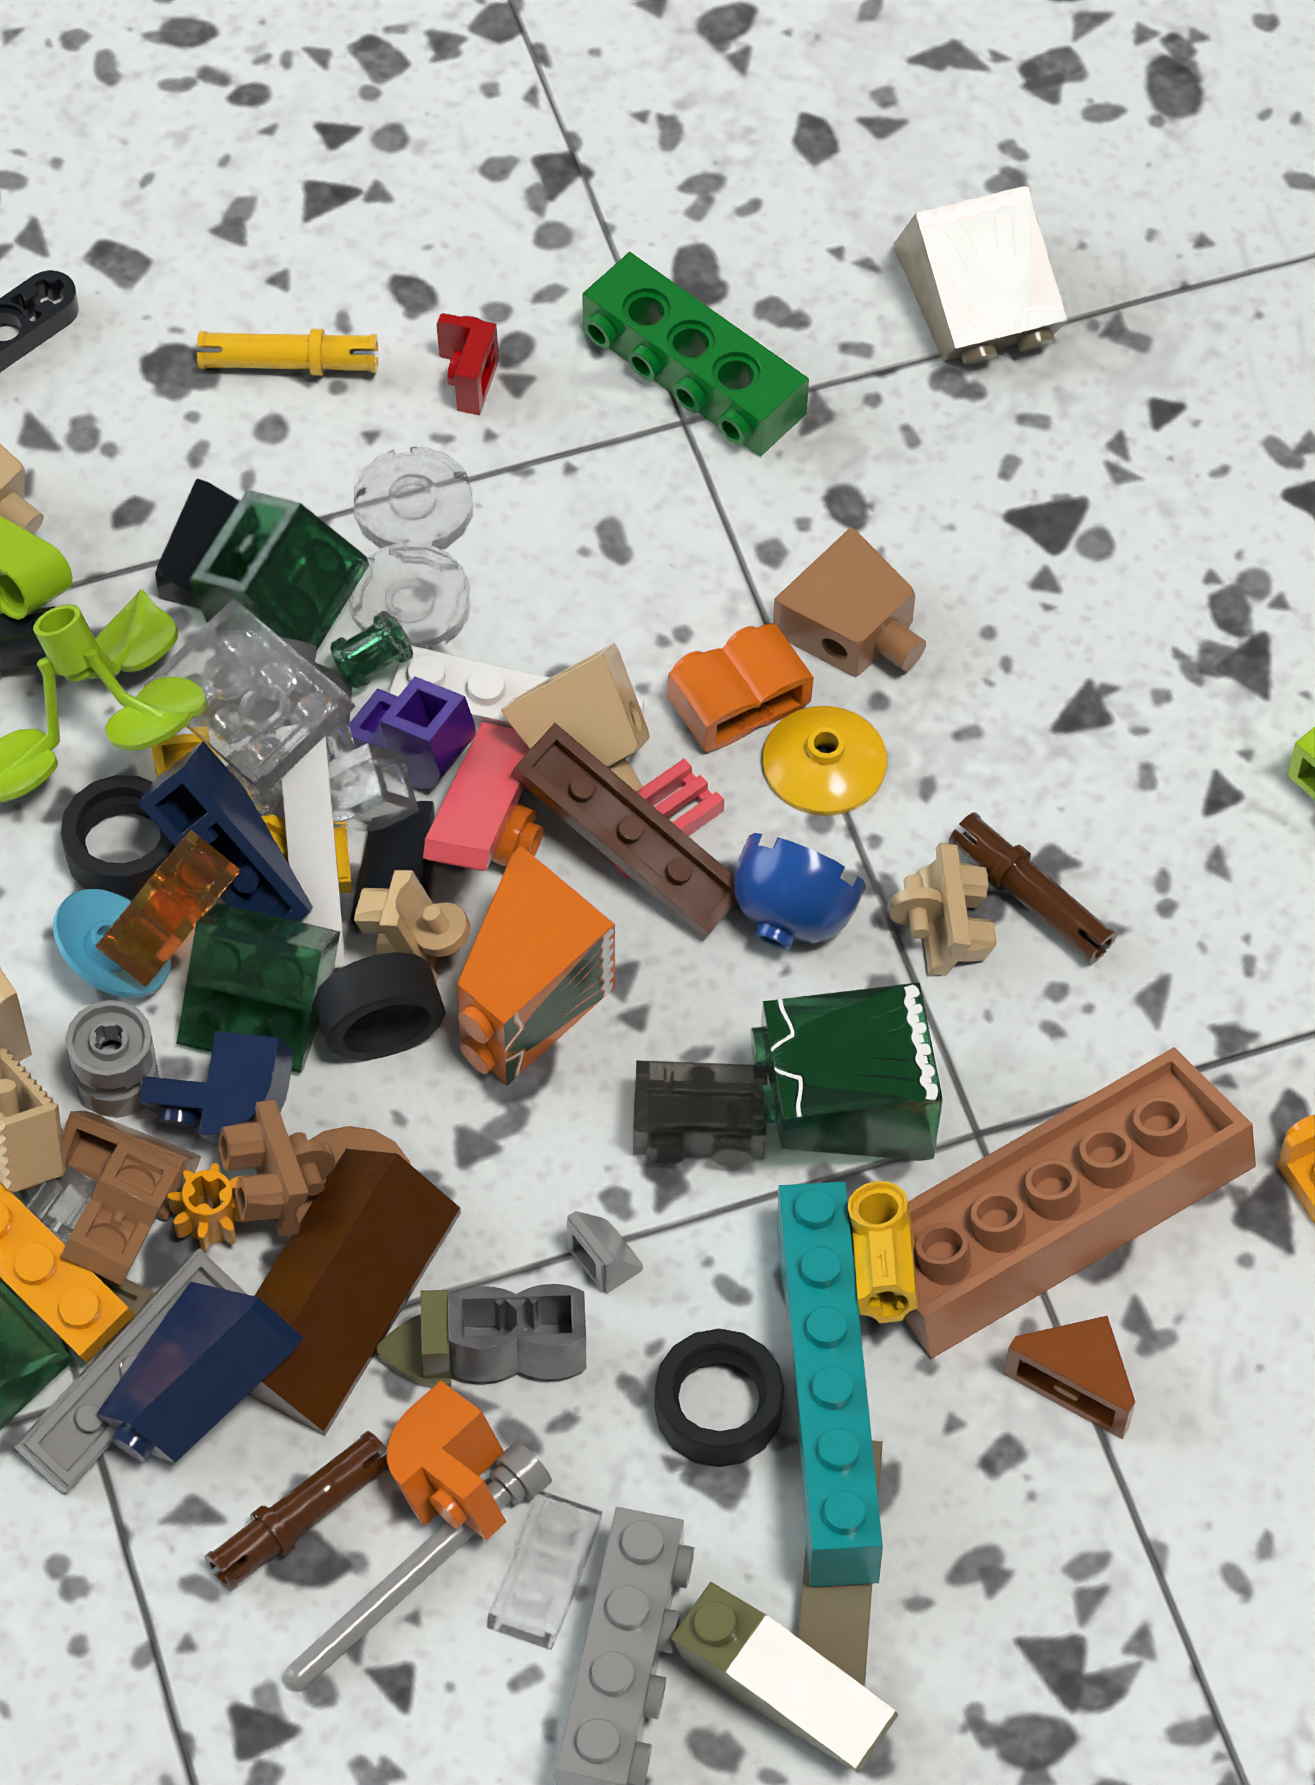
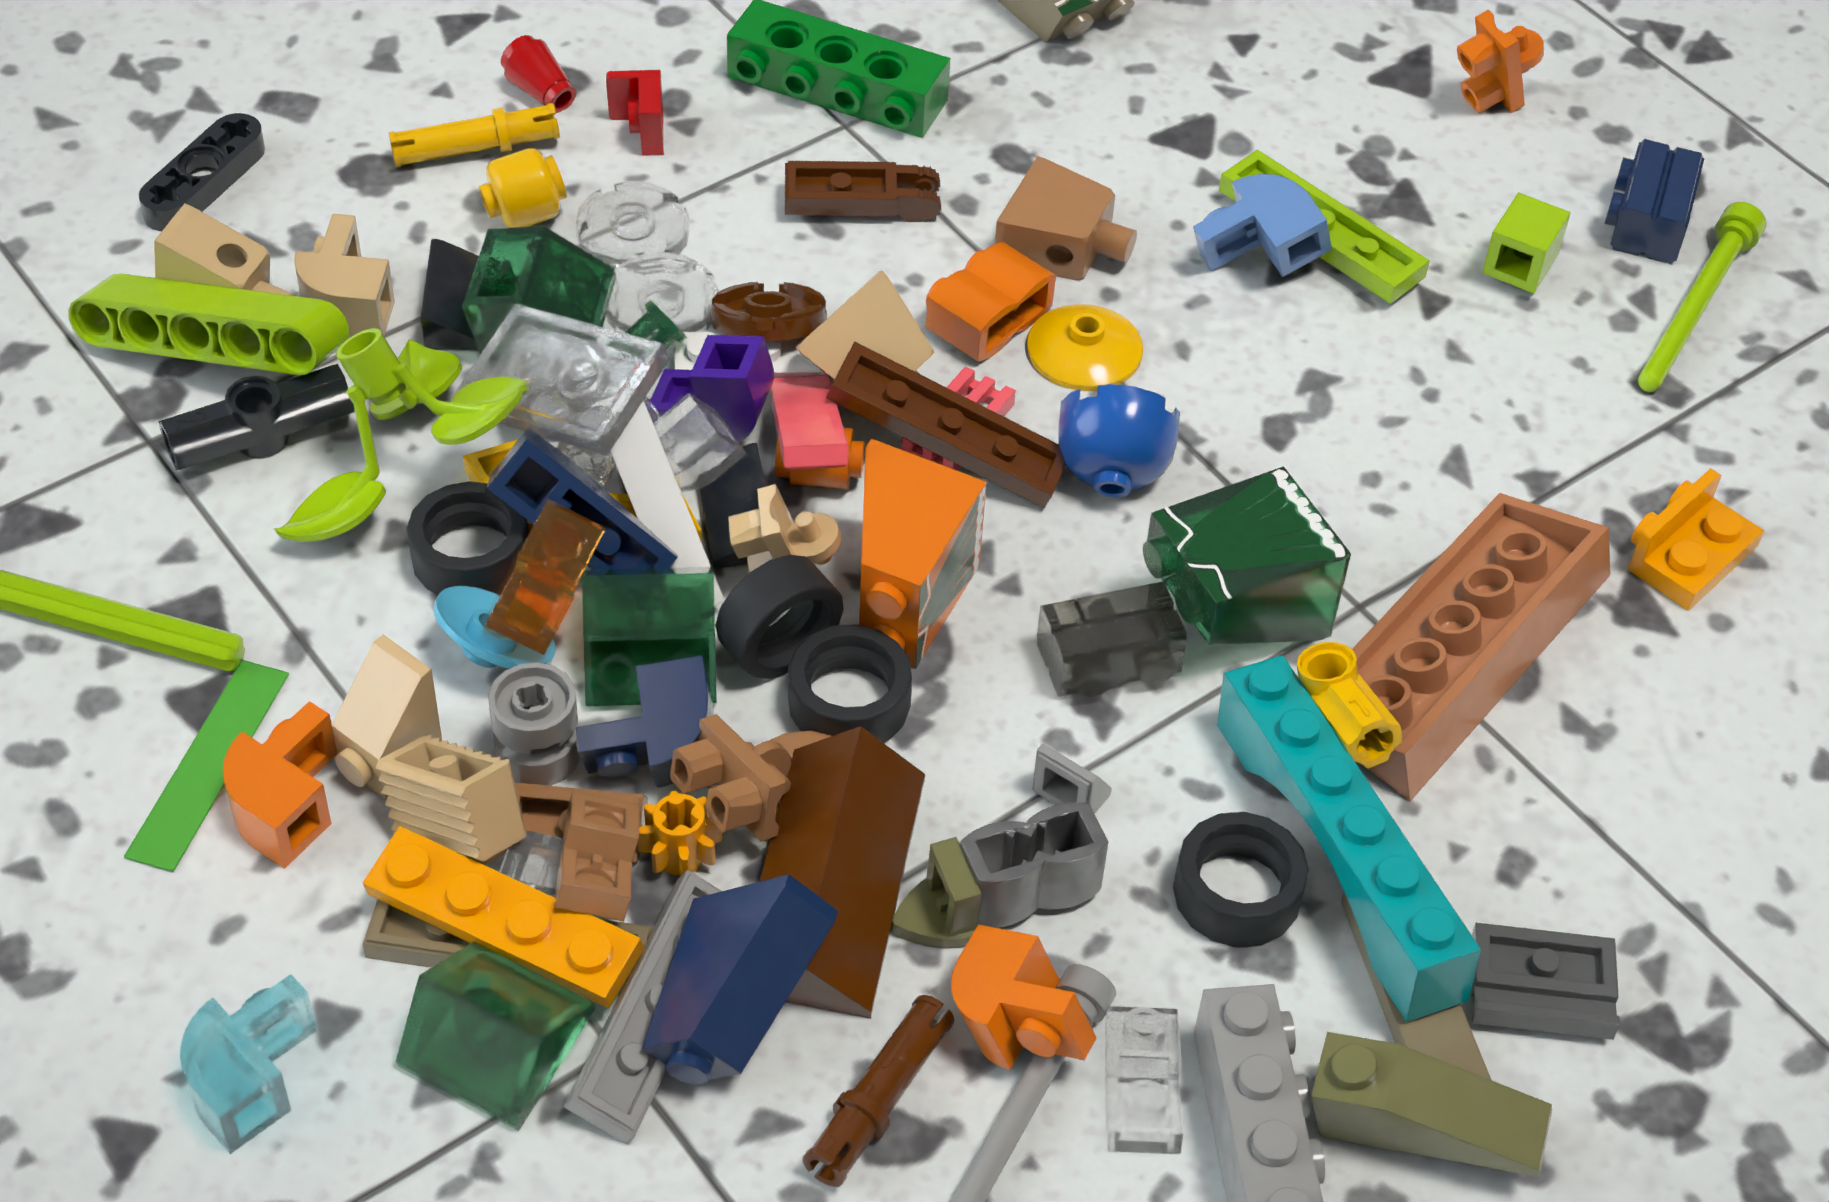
camera: 20 degrees left, 10 degrees down
(92, 514) = (345, 278): none -> tan brick
(310, 435) = (523, 188): none -> yellow head
(378, 286) = (535, 70): none -> red cone
(423, 1049) = (850, 648): none -> black tyre
(503, 647) = (775, 315): none -> reddish brown tile
(660, 514) = (861, 189): none -> reddish brown hinge
(937, 910) = (1250, 429): tan hips -> none
(964, 1583) = (1545, 981): none -> dark grey plate
(1012, 870) = (1294, 390): reddish brown pin -> none
(1067, 661) = (1268, 214): none -> medium blue brick
(1076, 1369) = (1557, 771): dark orange slope -> none
(1136, 678) = (1357, 245): none -> lime plate

